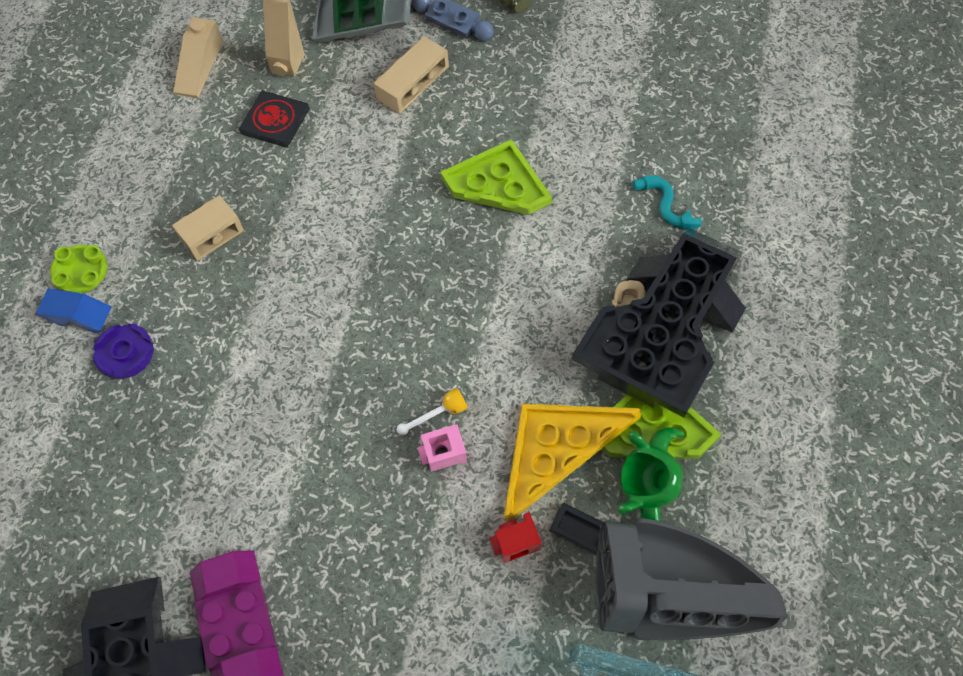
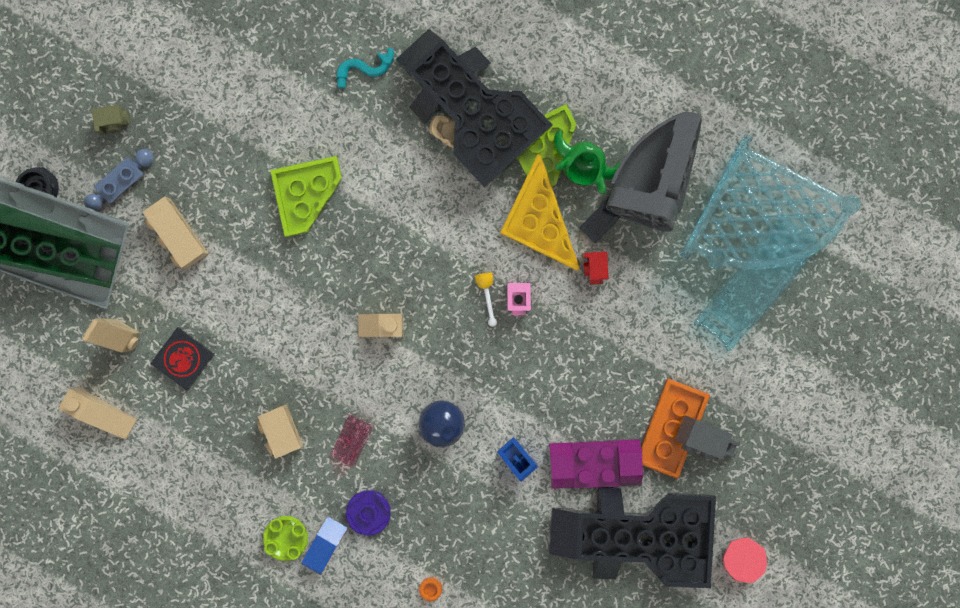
camera: 75 degrees left, 25 degrees up
(29, 452) = (430, 589): none -> orange tile
(212, 309) = (351, 440): none -> clear pink slope
(220, 511) = (517, 459): none -> blue slope
(250, 395) = (441, 423): none -> dark blue piece
(363, 302) = (380, 325): none -> tan slope

